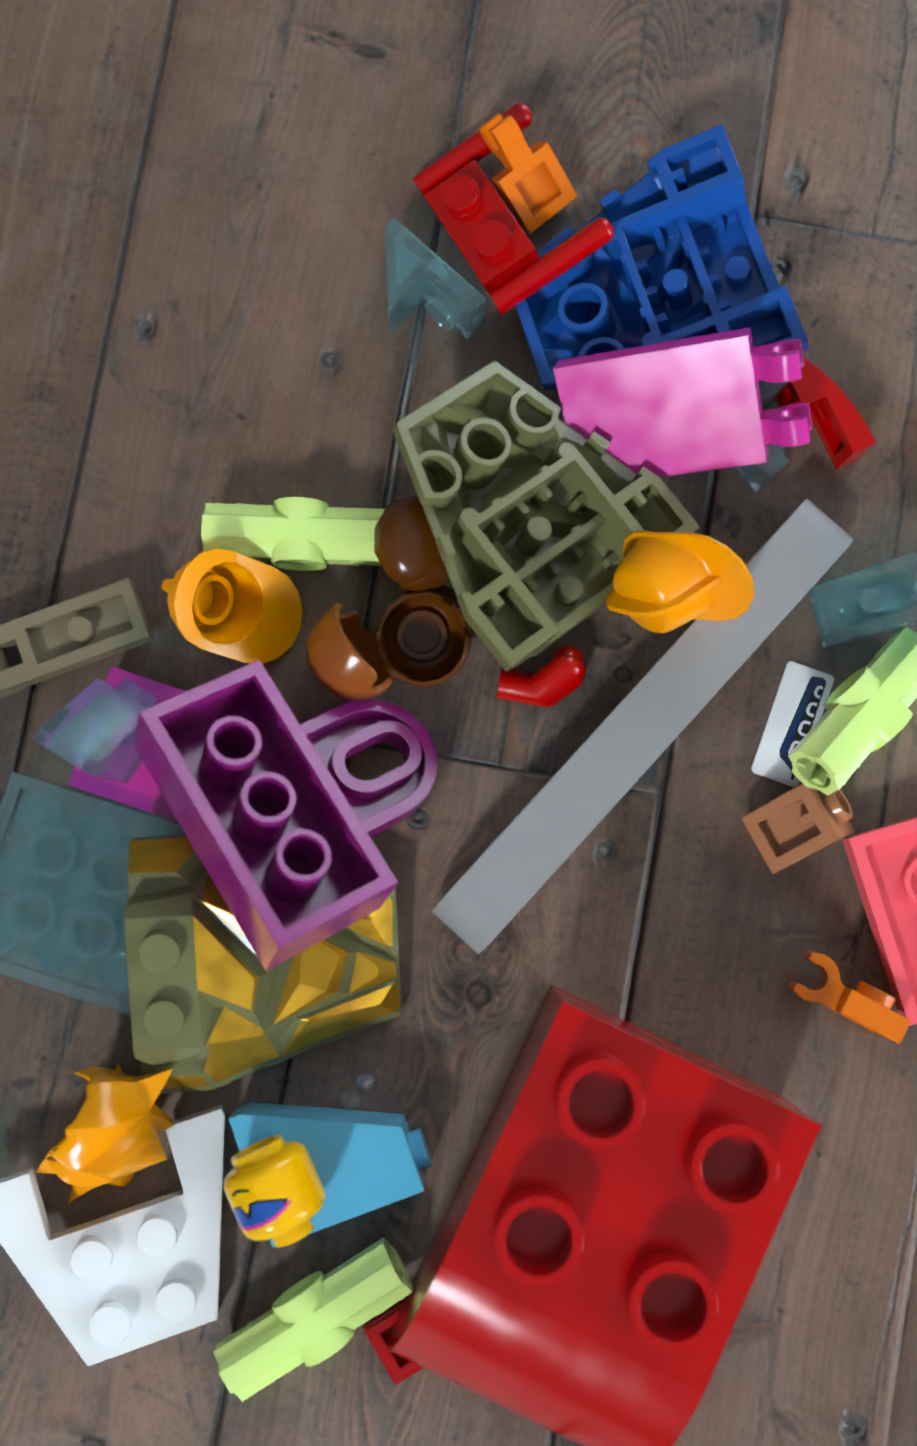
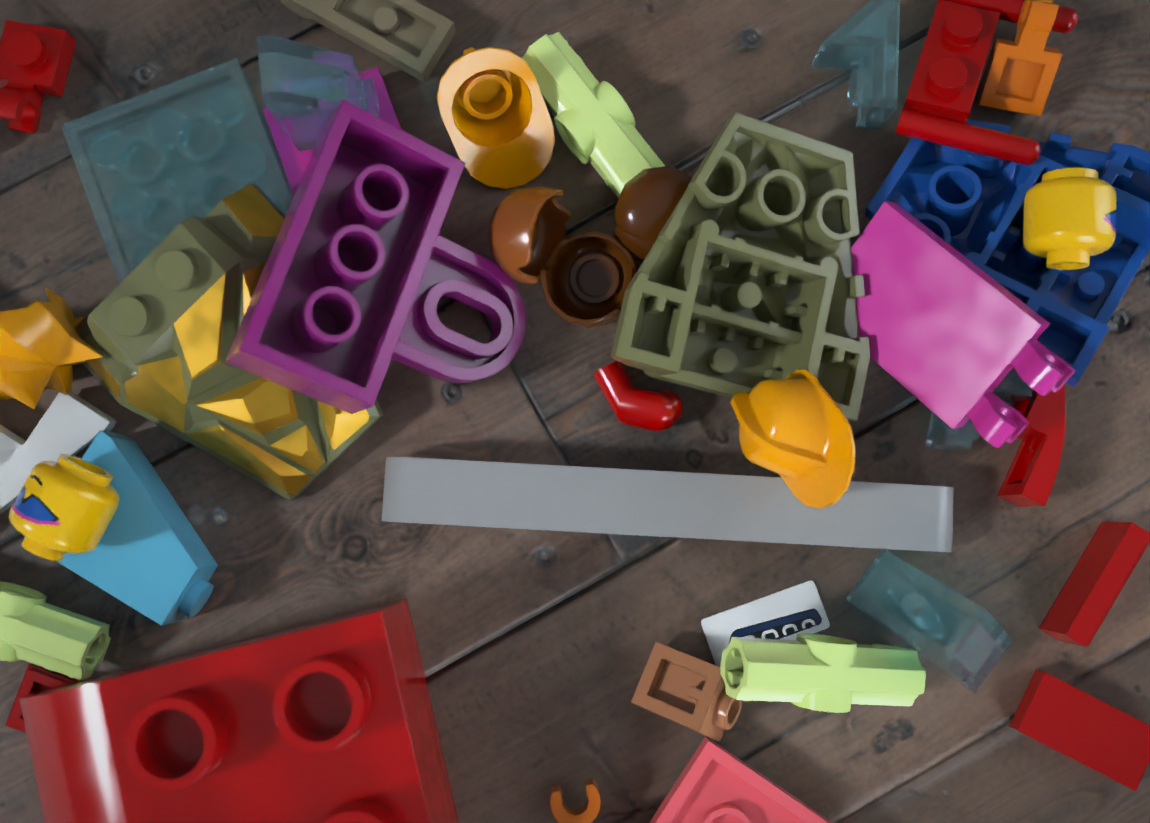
camera: 50 degrees right, 0 degrees up
(678, 244) = (1069, 217): none -> yellow head

